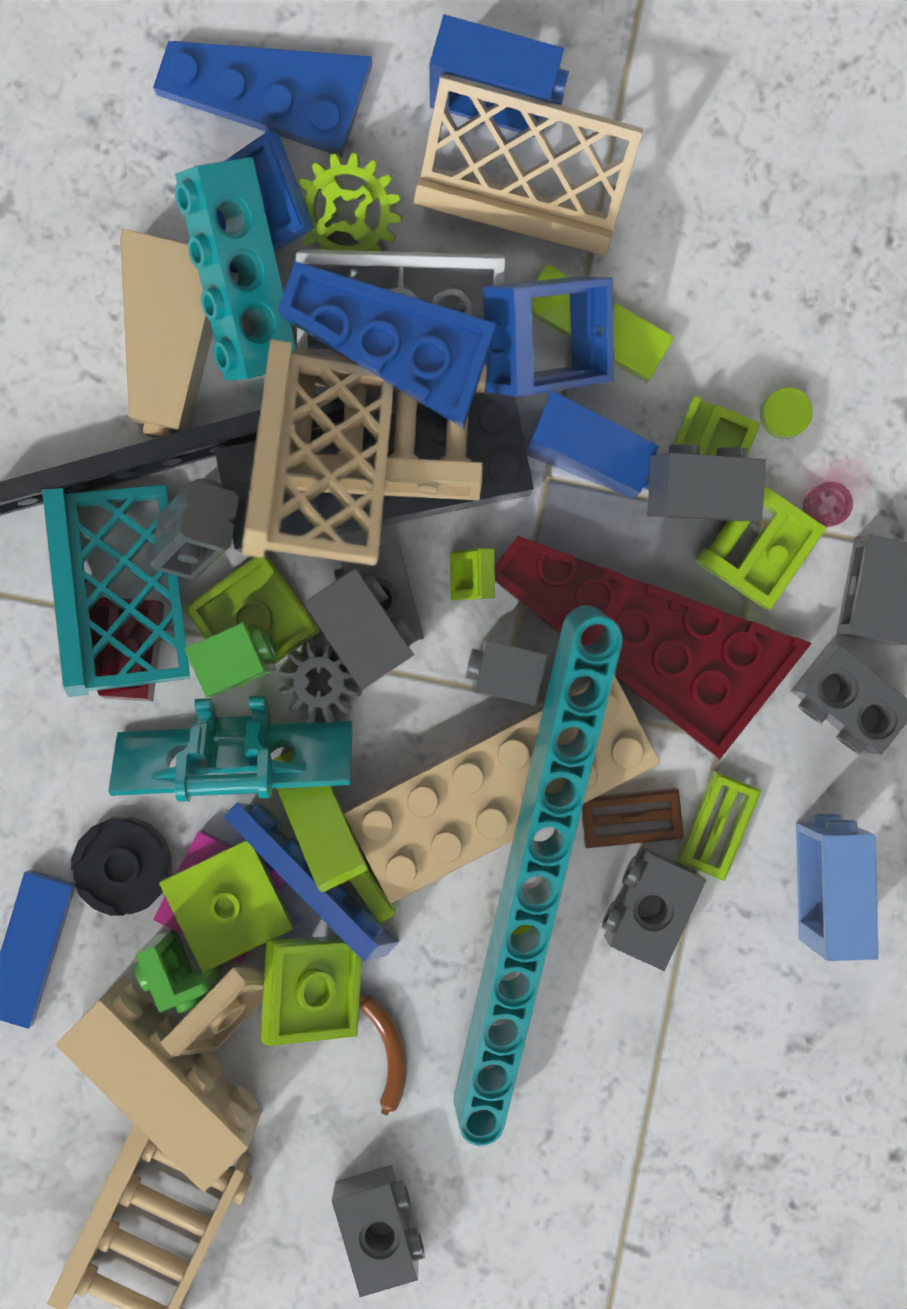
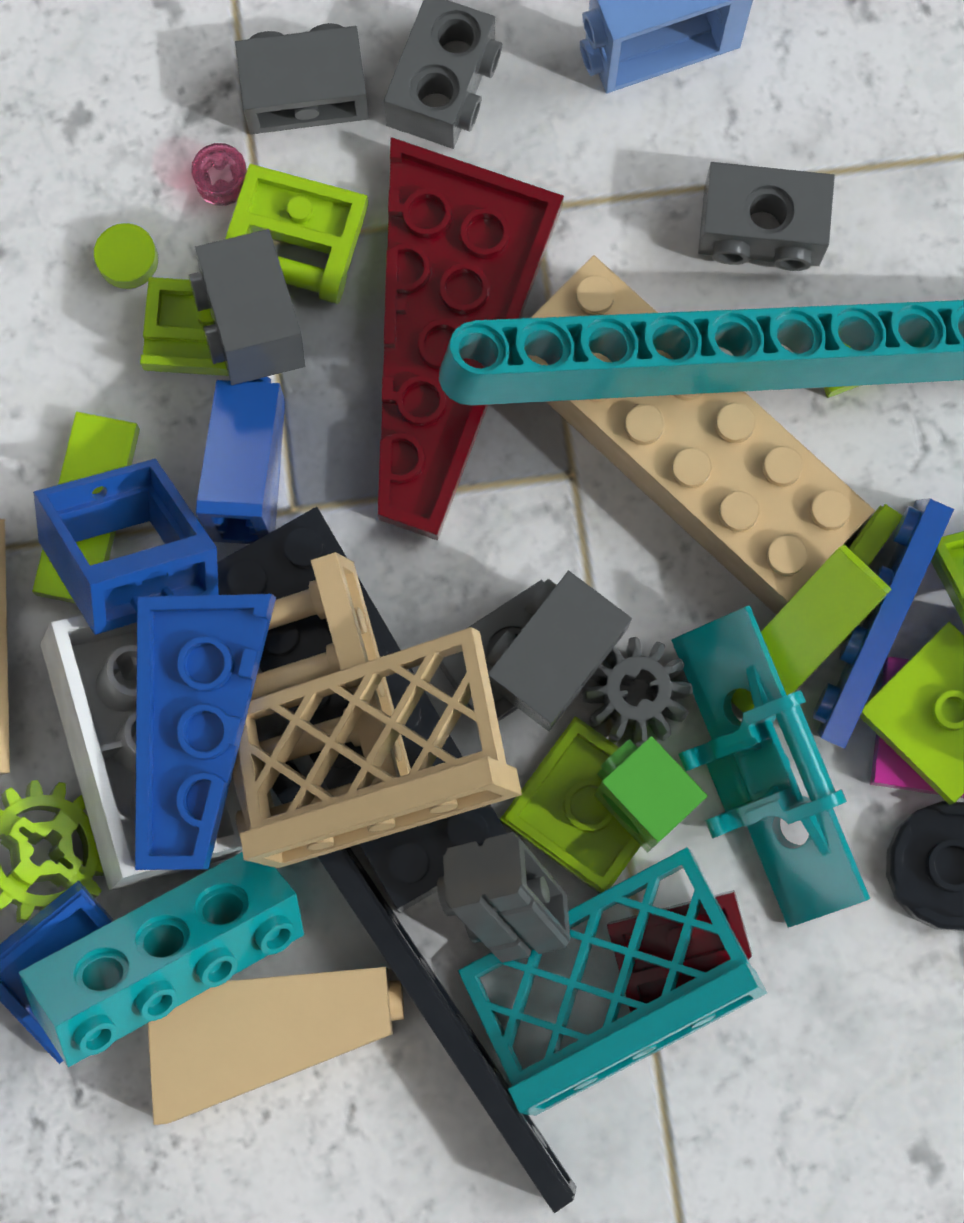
camera: 110 degrees left, 10 degrees down
(472, 574) = (443, 553): lime tile -> none
(506, 672) = (548, 467): dark grey brick -> none
(673, 813) = (645, 232): reddish brown tile -> none
(700, 820) = (641, 198): lime tile -> none

